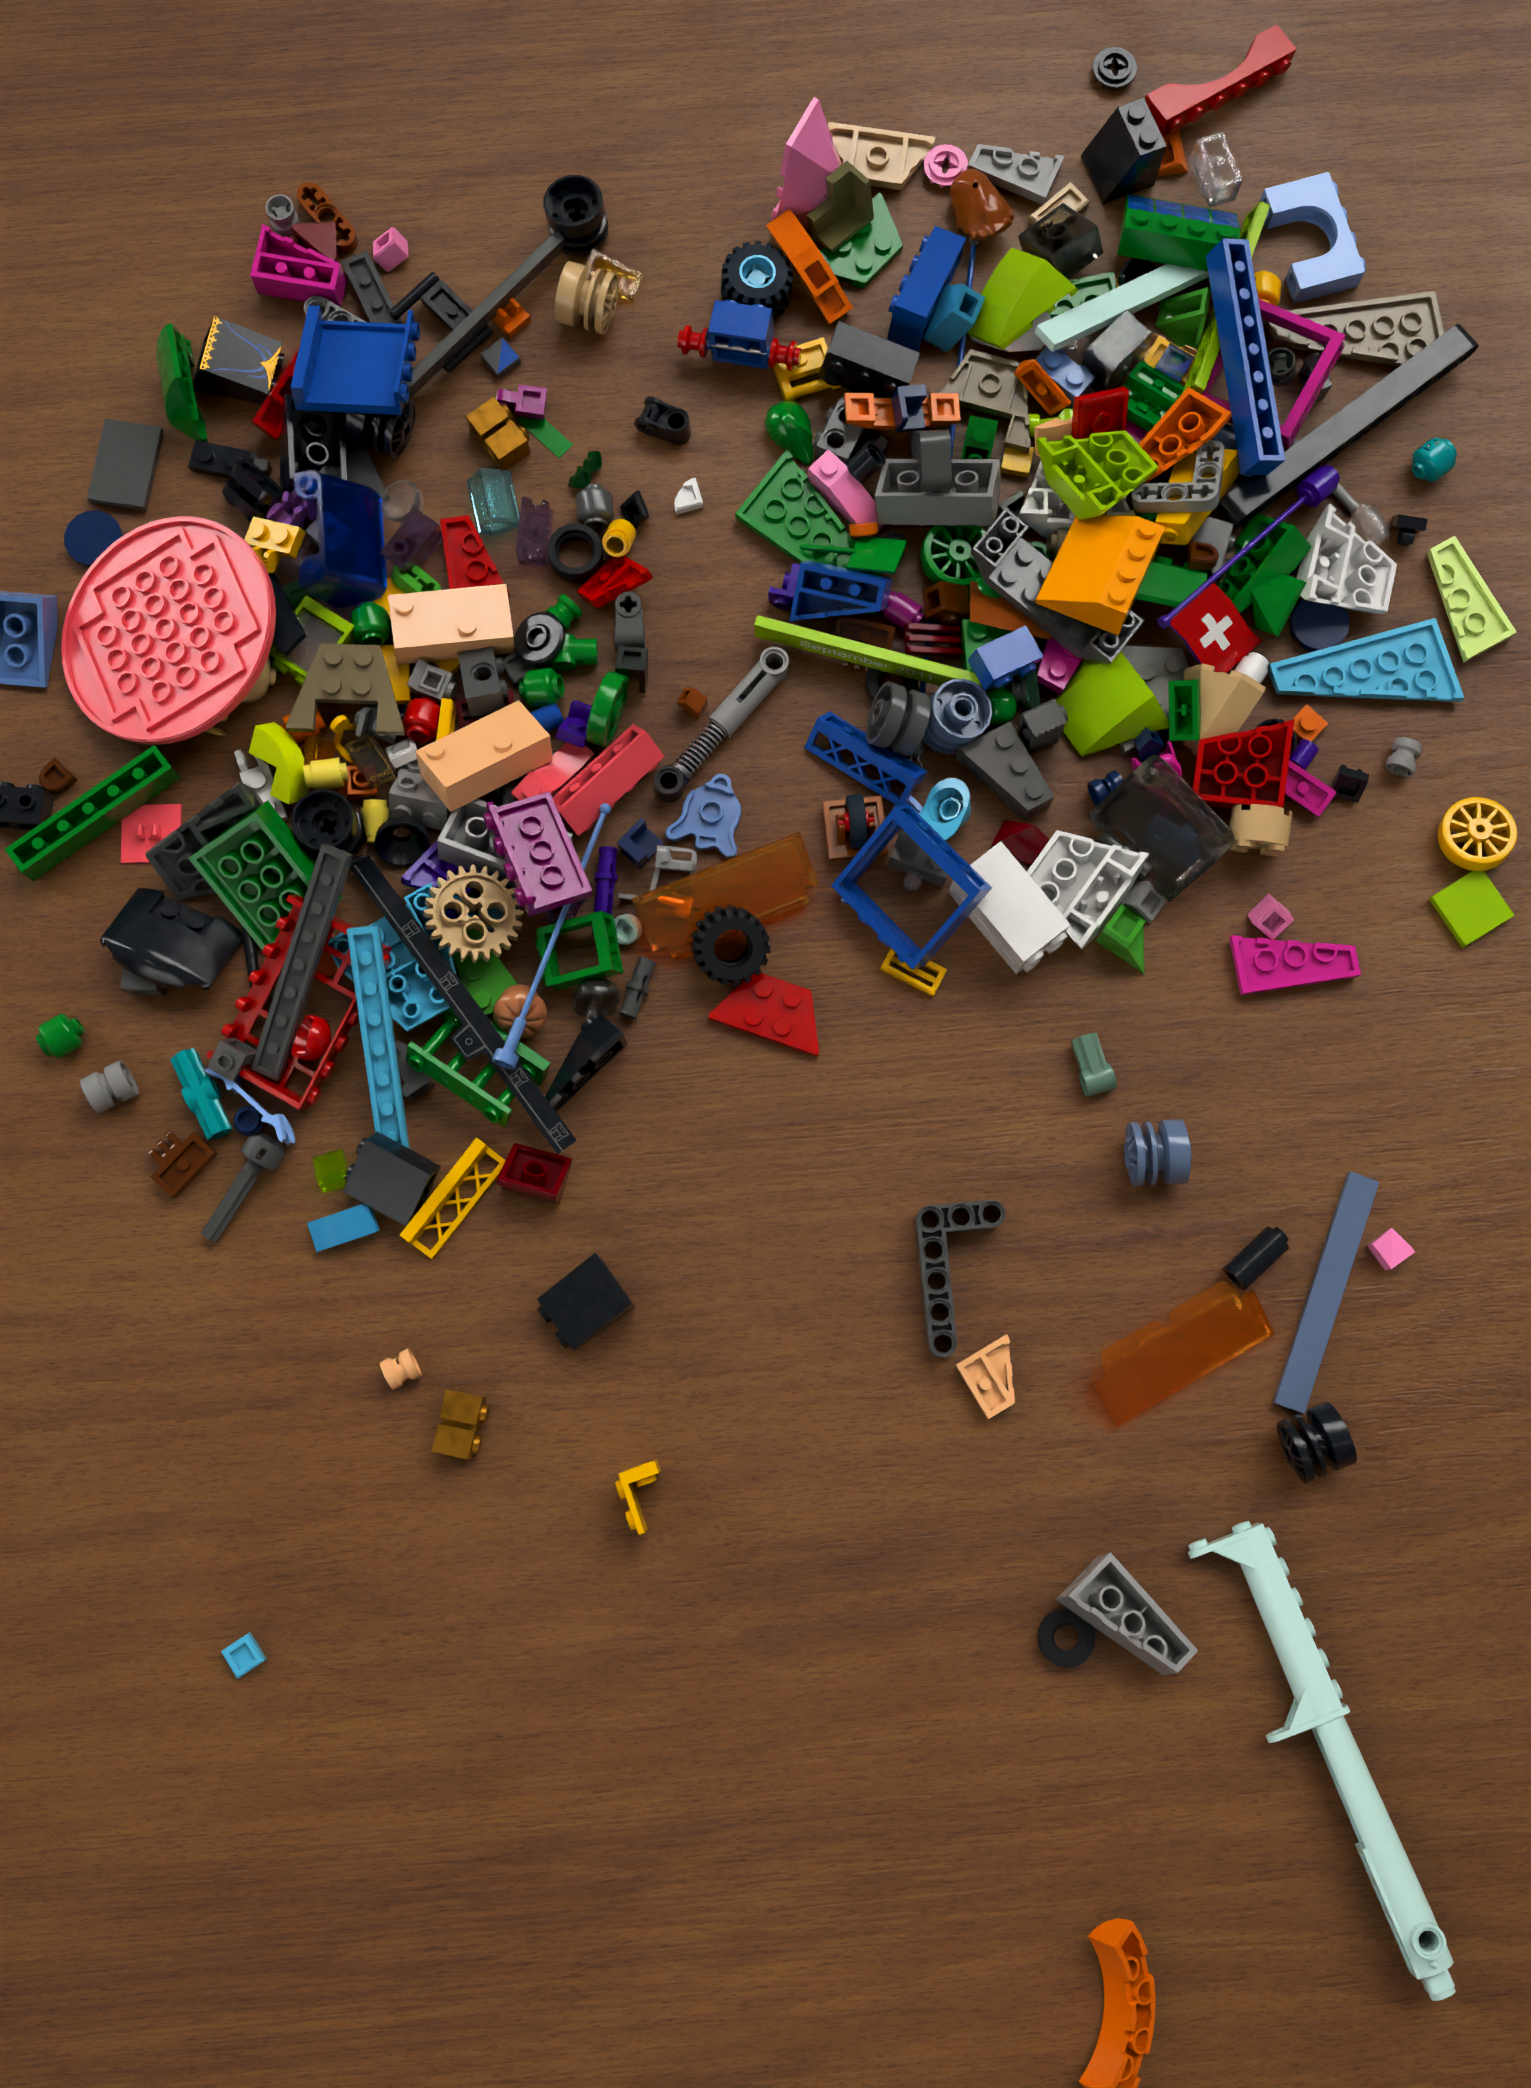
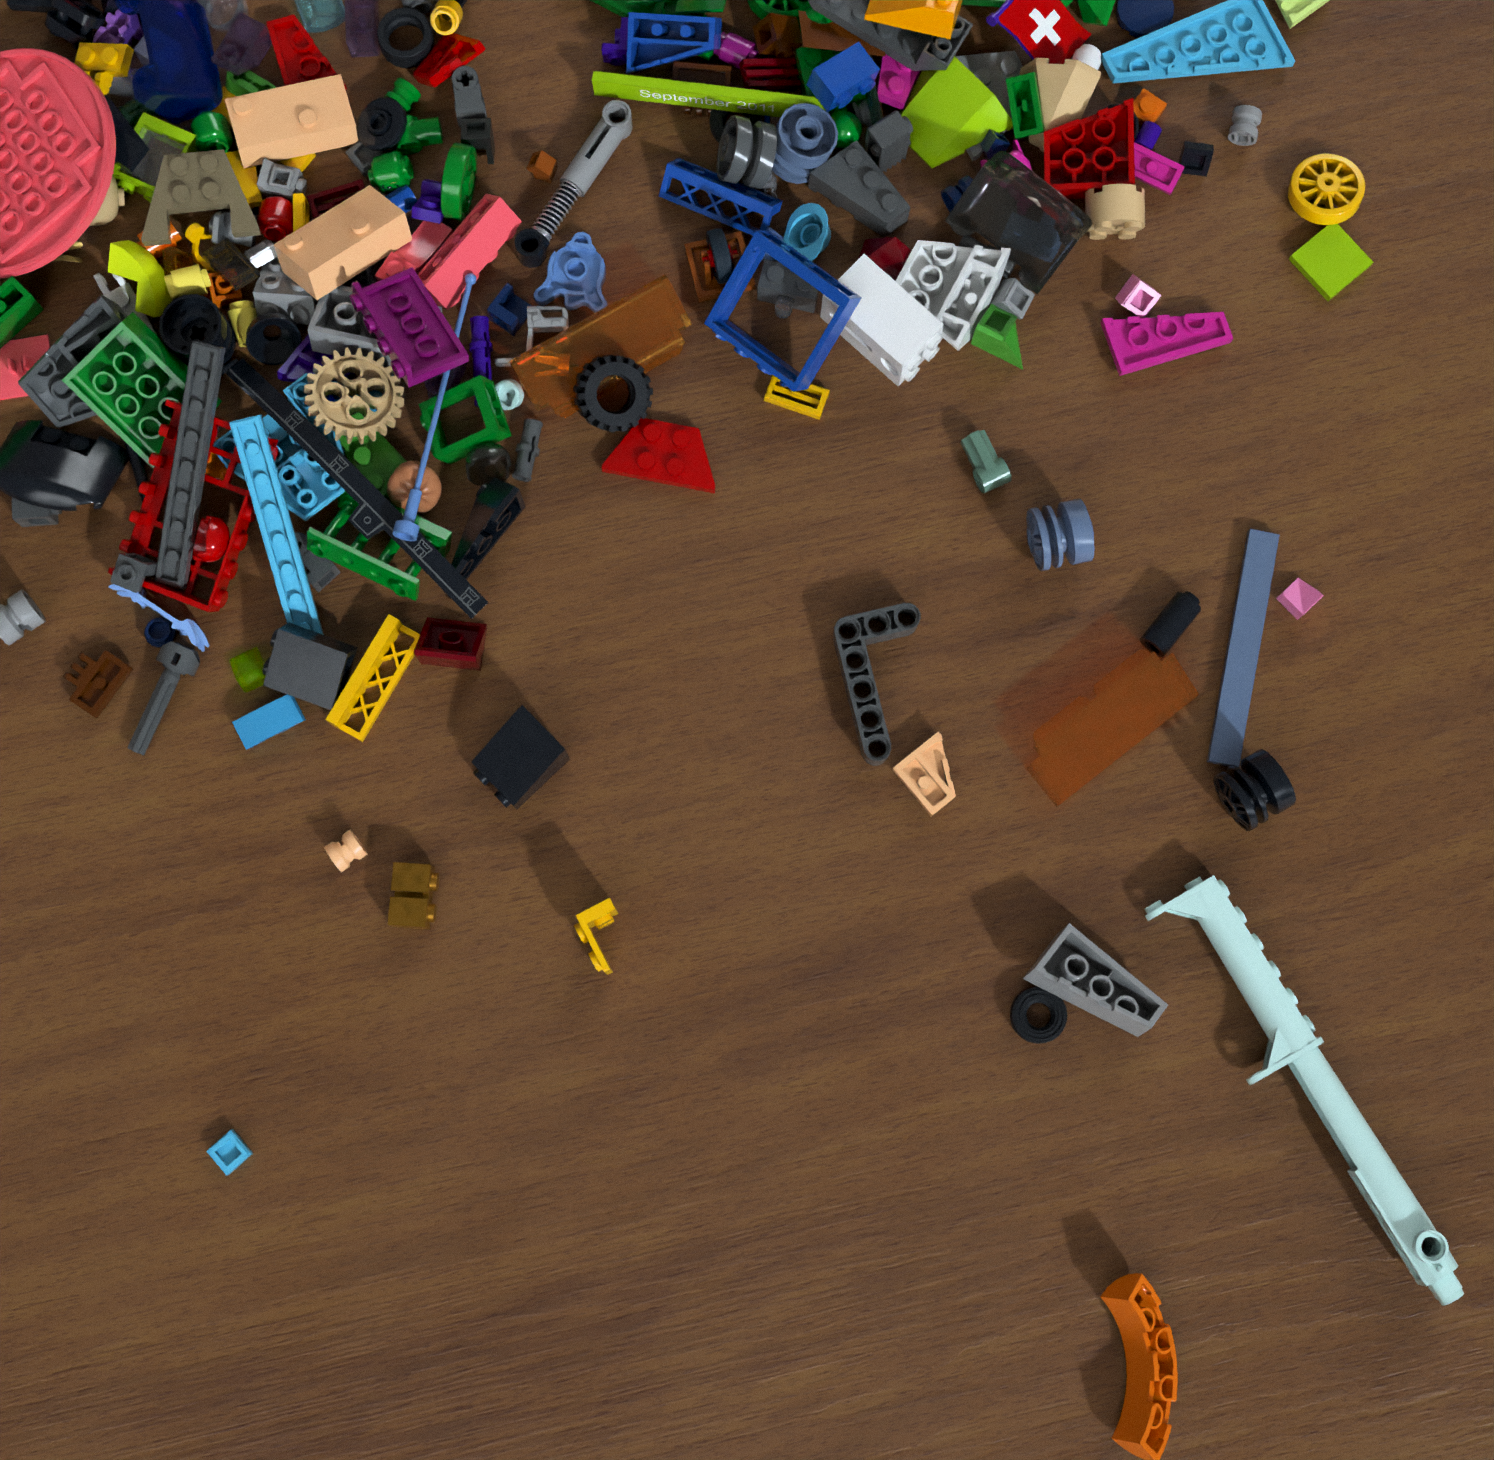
camera: 10 degrees left, 0 degrees up
(201, 1094) = (108, 612): teal piece -> none
(482, 682) = (330, 171): dark grey brick -> none

